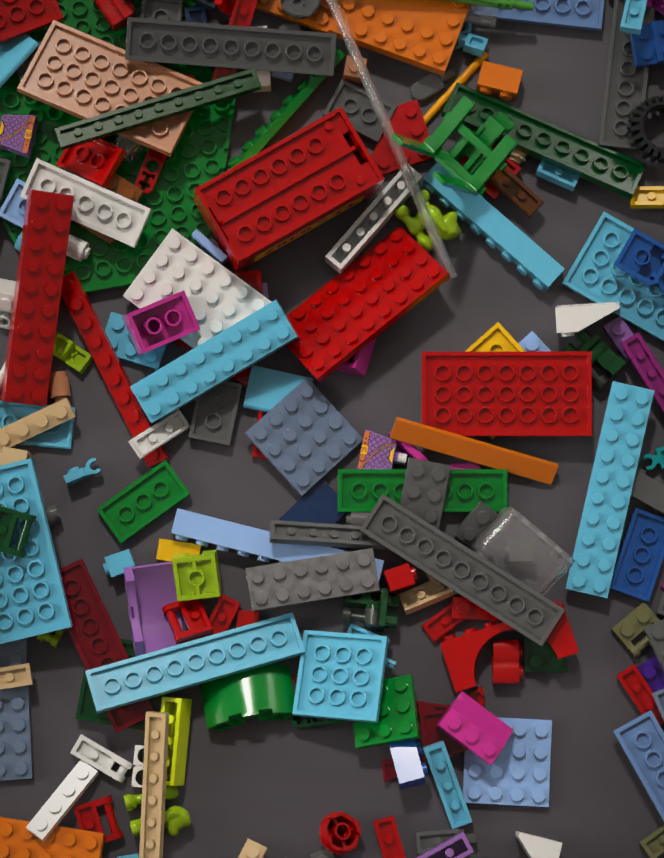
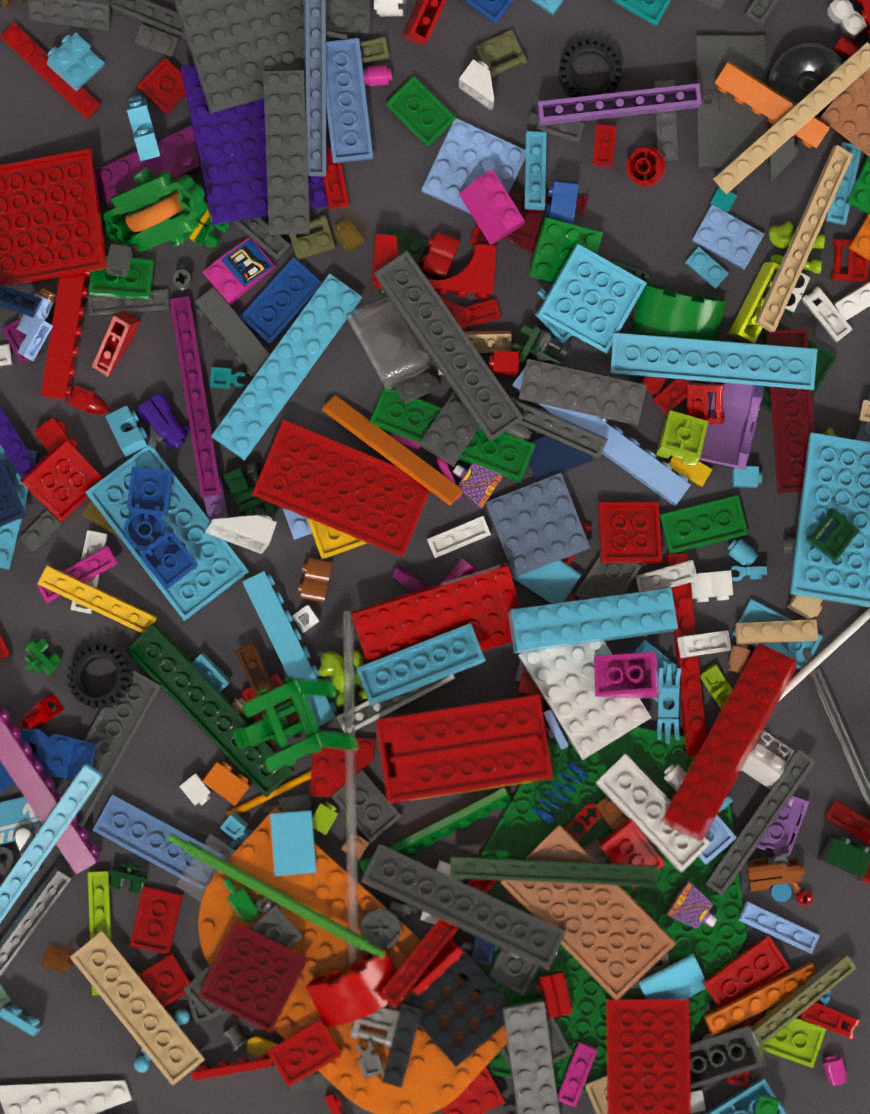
camera: 160 degrees left, 5 degrees up
(95, 489) = (742, 552): none -> medium azure brick
(98, 384) = (704, 644): none -> white plate
(107, 303) = (670, 716): none -> medium azure piece
(112, 446) = (712, 585): none -> white brick
(185, 161) = (542, 813): none -> blue piece
(212, 464) = (629, 532): none -> red plate
(229, 797) = (728, 237): none -> light blue plate
(238, 757) = (706, 268): none -> medium azure plate
(248, 830) = (722, 200): none -> teal tile
(362, 254) = (420, 664): none -> medium azure plate
(375, 395) = (459, 537): none -> white plate
(395, 84) = (324, 817): none -> lime brick
(405, 334) = (408, 580): none -> magenta arm
(414, 43) = (293, 843): none -> medium azure tile
(489, 262) = (305, 618): none -> white slope
(495, 300) = (316, 580): none -> dark orange brick
(525, 61) = (196, 790): none -> white brick
(585, 799) = (420, 112): none -> green plate
(604, 644) = (348, 236): none -> clear yellow brick
(643, 818) = (377, 75): none -> dark pink brick

